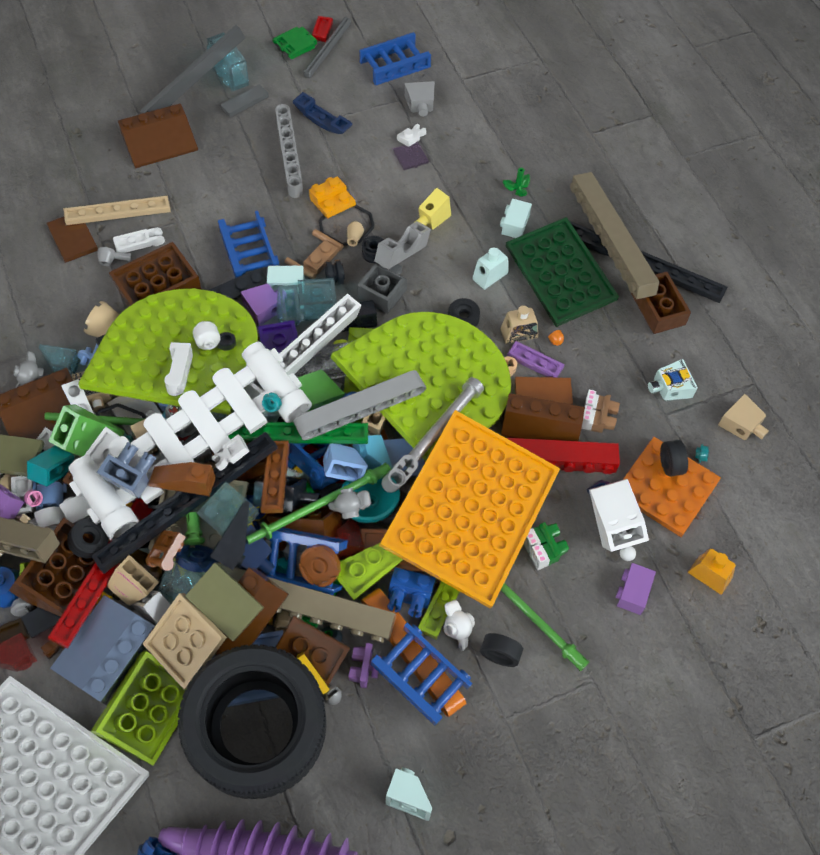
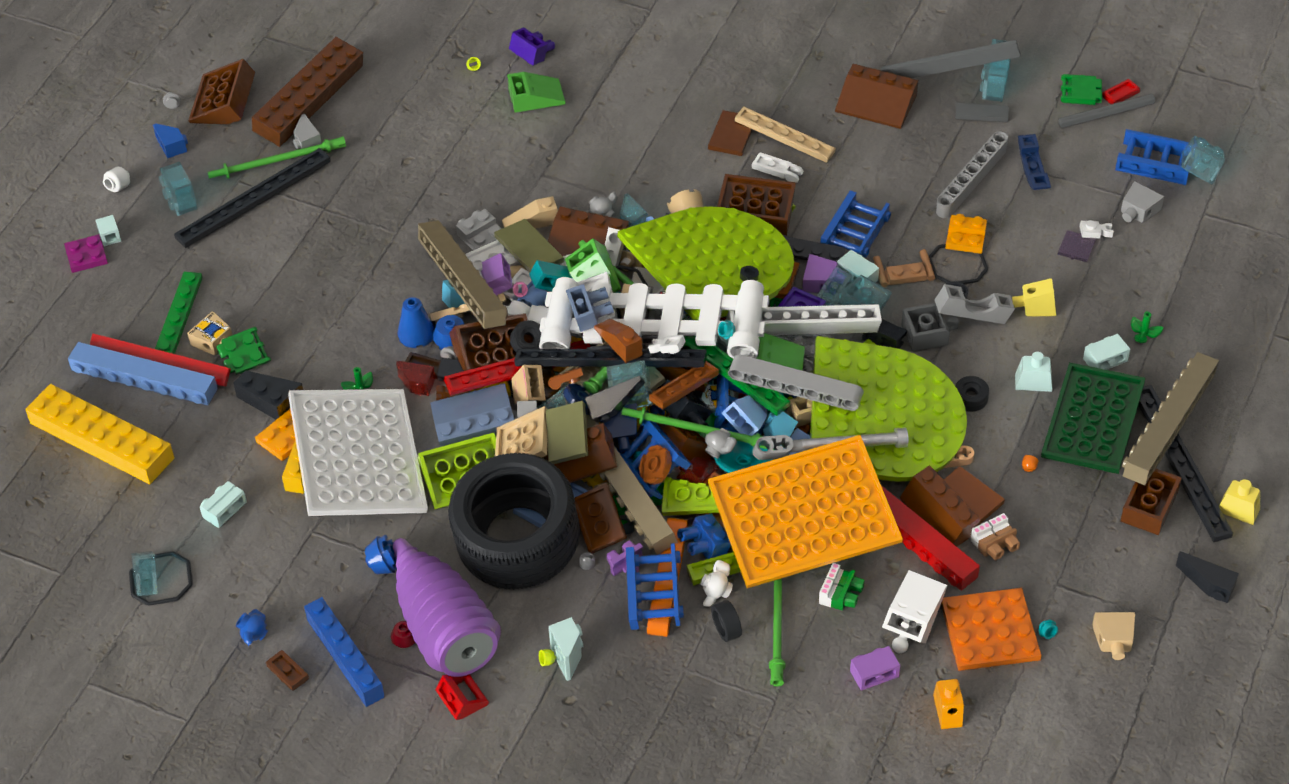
camera: 50 degrees right, 10 degrees down
(107, 255) = (742, 163): light grey bar -> none
(181, 360) = (693, 266): white leg -> none
(206, 335) = (736, 258): white head -> none
(322, 685) = (584, 529): yellow tile -> none
(335, 271) = (901, 290): black wheel -> none
(354, 233) = (952, 273): tan cone -> none
(394, 818) = (546, 657): none -> neon yellow hinge
(430, 39) = (1202, 159): none -> clear light blue slope
(519, 325) = (1007, 431): tan torso -> none
(535, 360) = (992, 467): medium lavender tile -> none
(673, 382) = (1088, 563): light aqua torso -> none
(674, 458) = (1007, 604): black tyre -> none
(709, 260) = (1241, 501): none -> light yellow torso
(748, 330) = (1209, 577): none -> black slope

